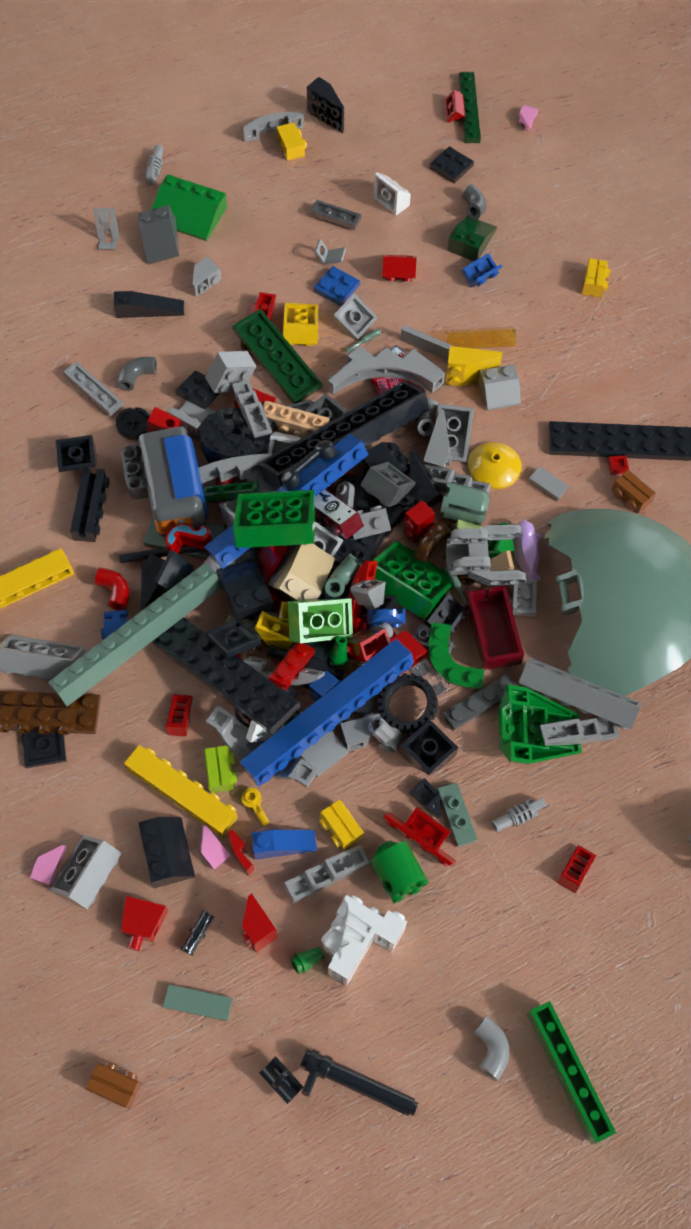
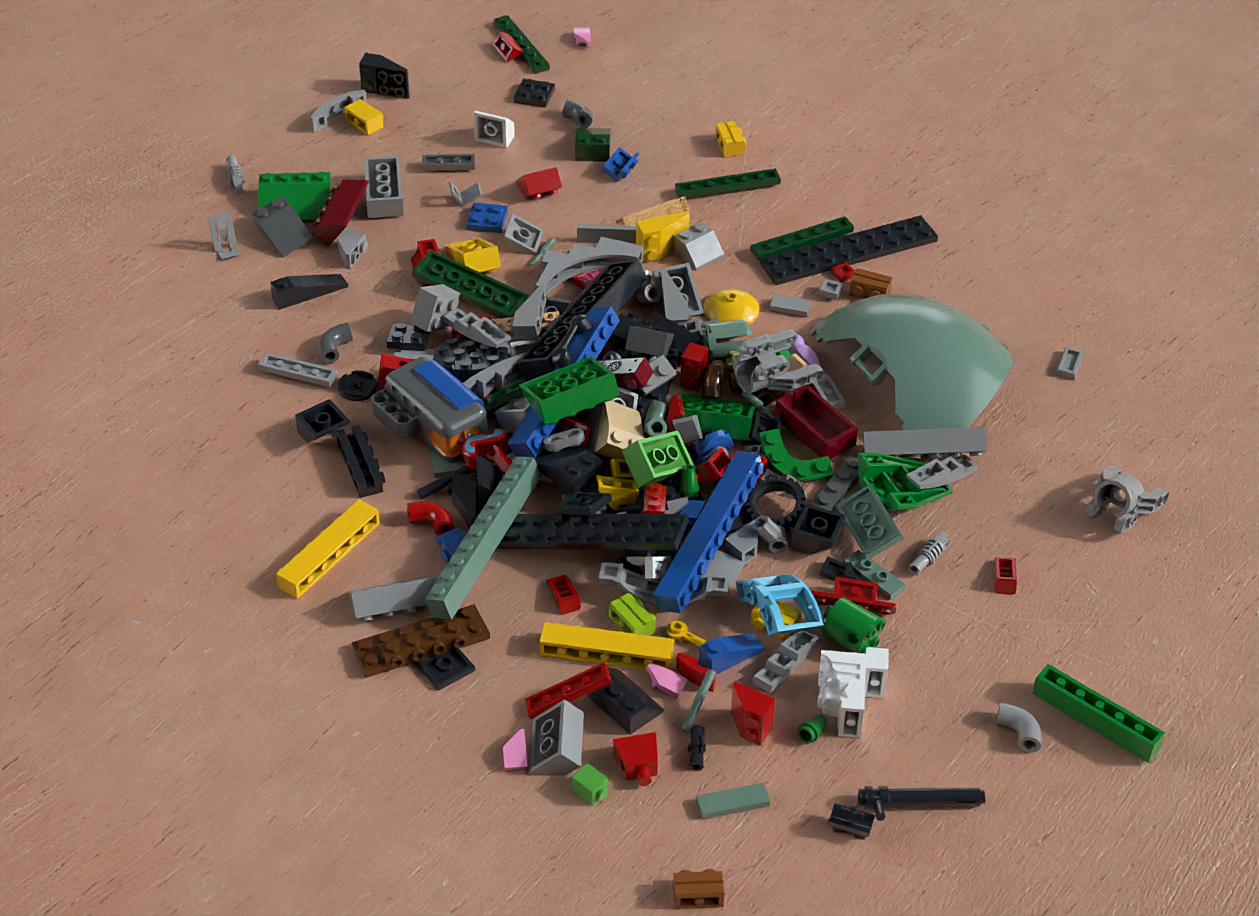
camera: 25 degrees left, 20 degrees down
(87, 930) = (590, 784): none -> bright green brick
(118, 827) = (569, 689): none -> red tile
(194, 557) = (501, 459): none -> red plate
(211, 235) = (338, 210): none -> dark red slope
(223, 886) = (696, 705): none -> sand green bar
(252, 563) = (564, 439): none -> light grey plate
(264, 223) = (384, 187): none -> light grey brick
(298, 416) = (529, 316): none -> light grey slope
(347, 789) = (768, 590): none -> medium azure window
(480, 760) = (869, 522): none -> sand green tile
(566, 327) = (728, 183): none -> dark green plate
(594, 480) = (830, 289): none -> light grey plate
(601, 413) = (802, 237): none -> dark green plate

